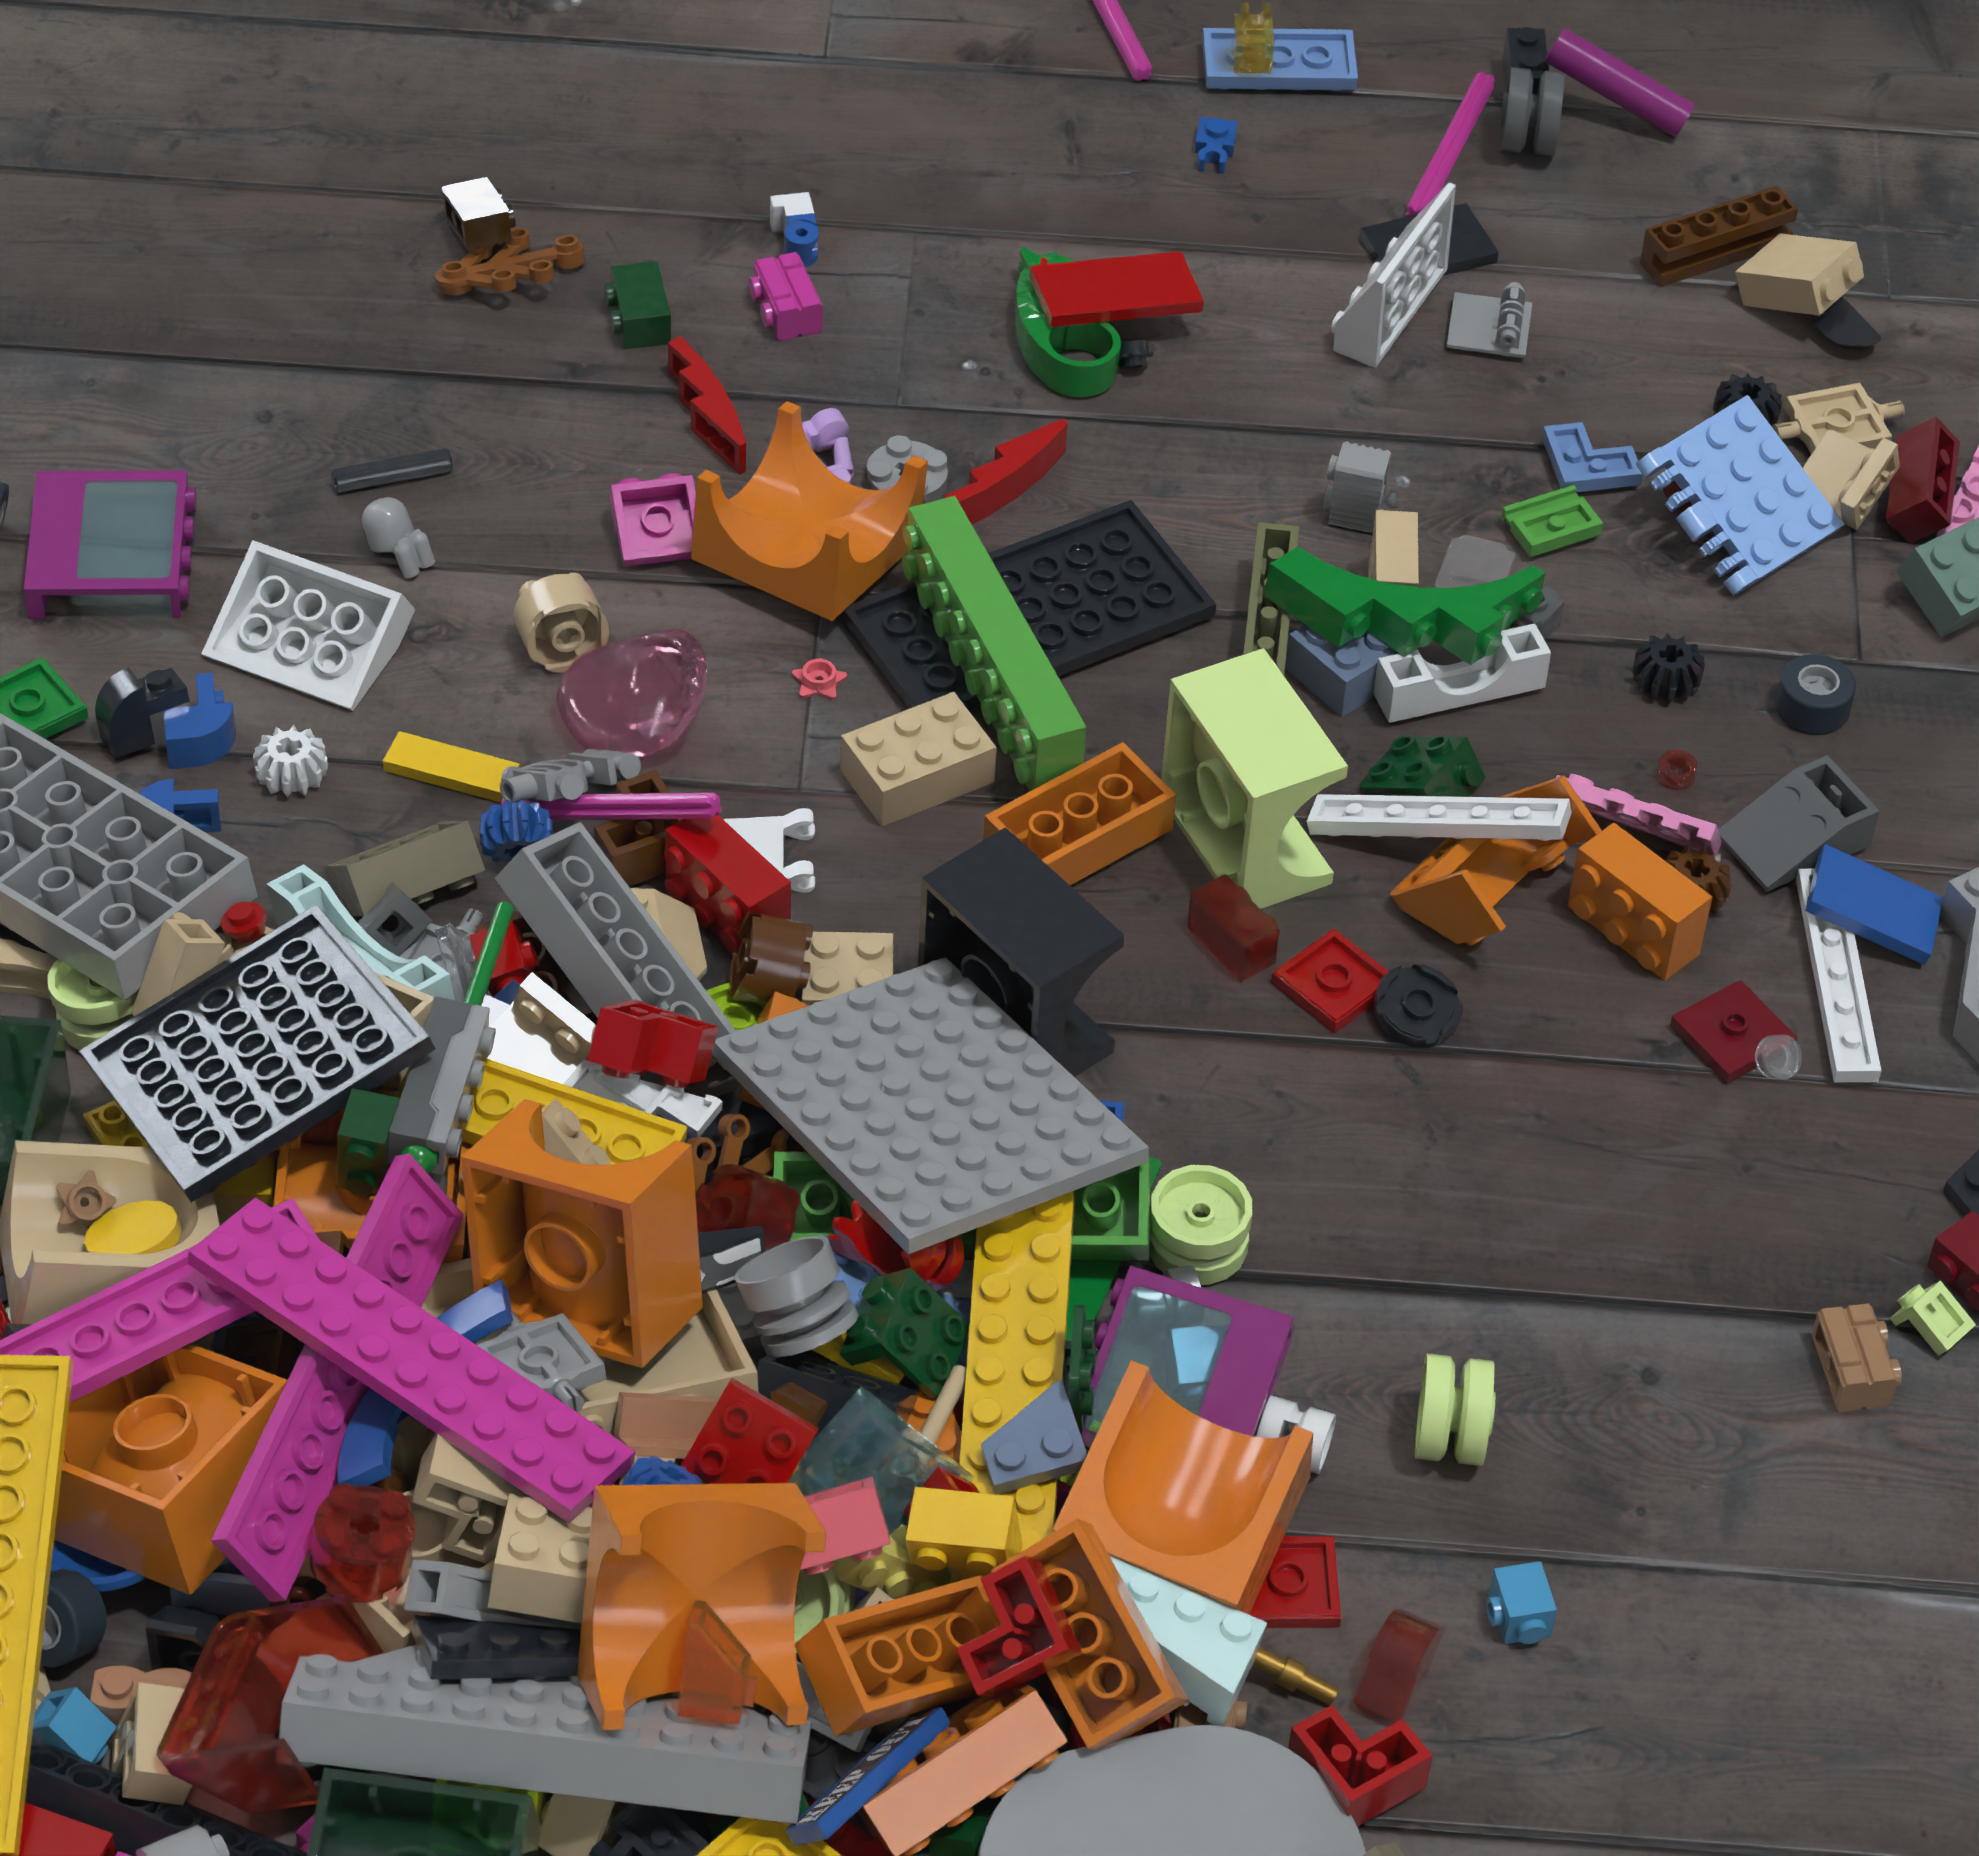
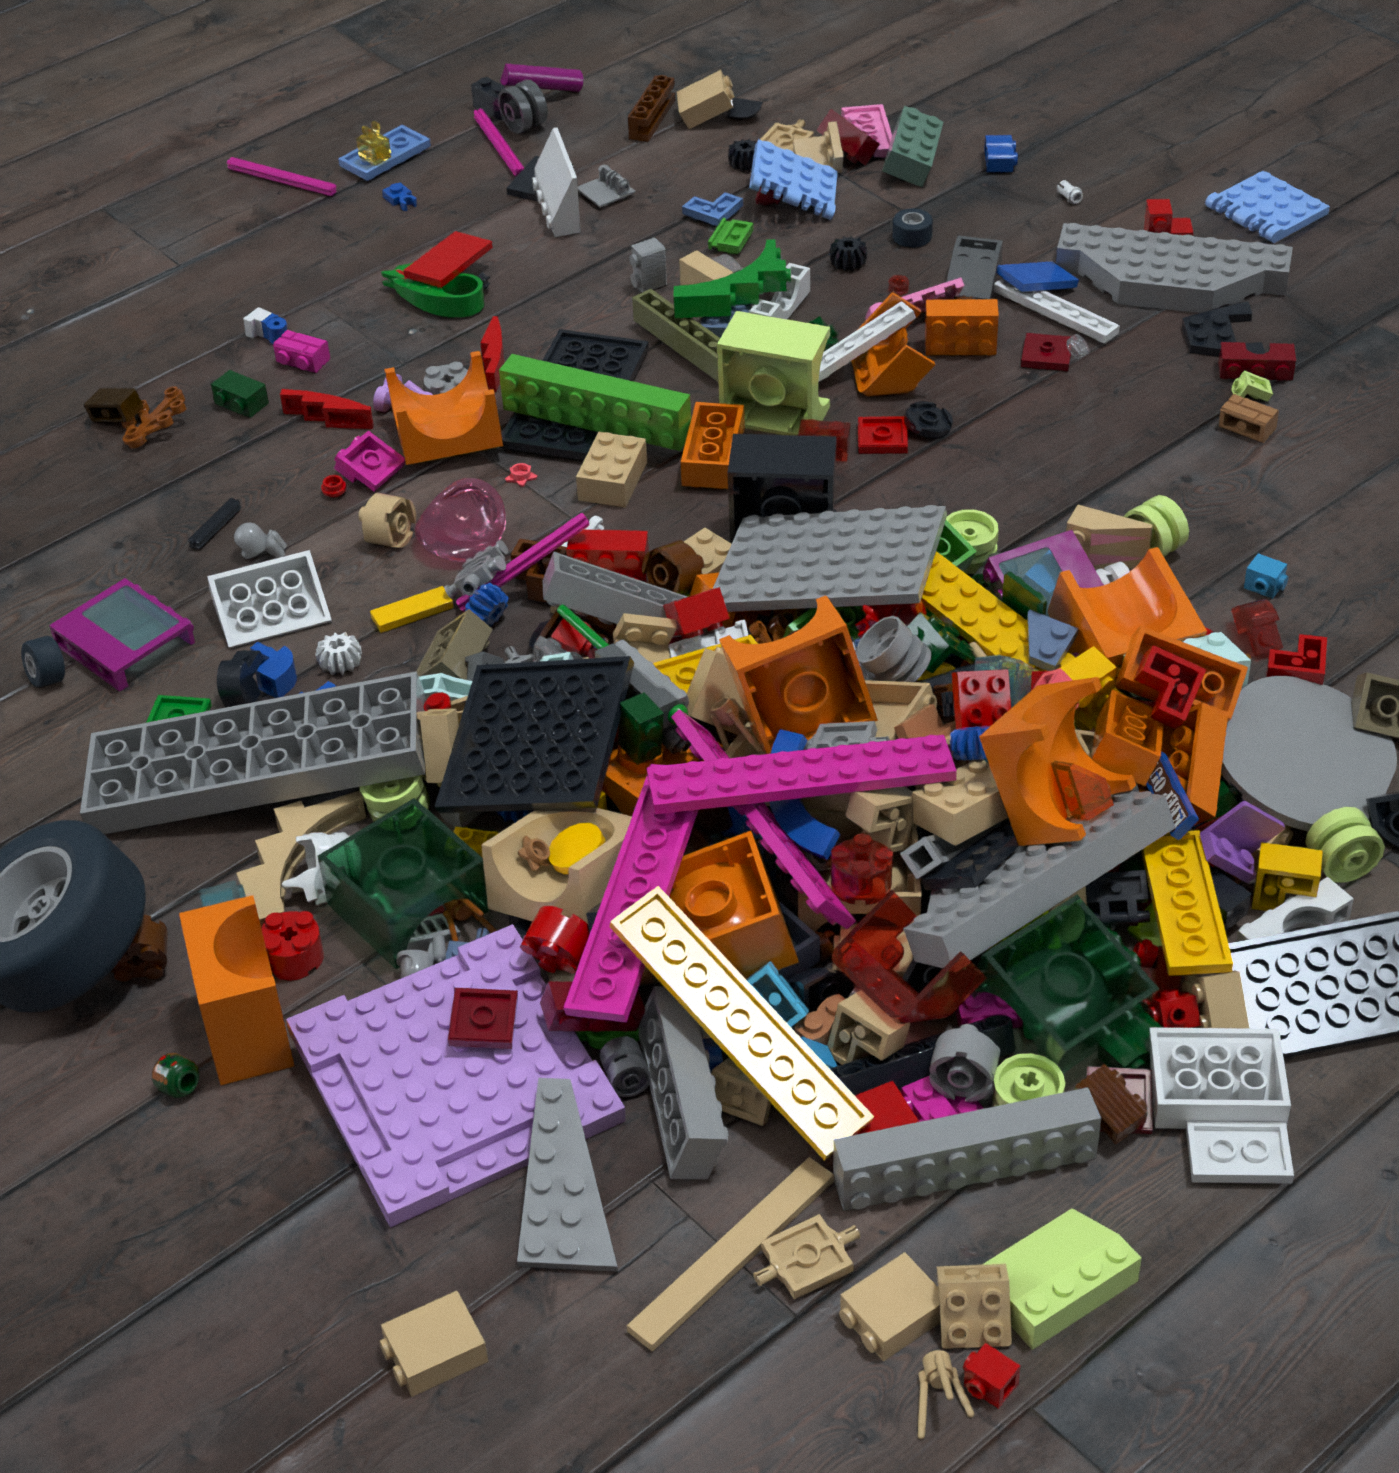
camera: 40 degrees left, 5 degrees down
(112, 1614) = (778, 994): none -> medium azure brick
(581, 523) = (333, 486): none -> red plate
(1361, 1368) = (1110, 537): none -> tan slope

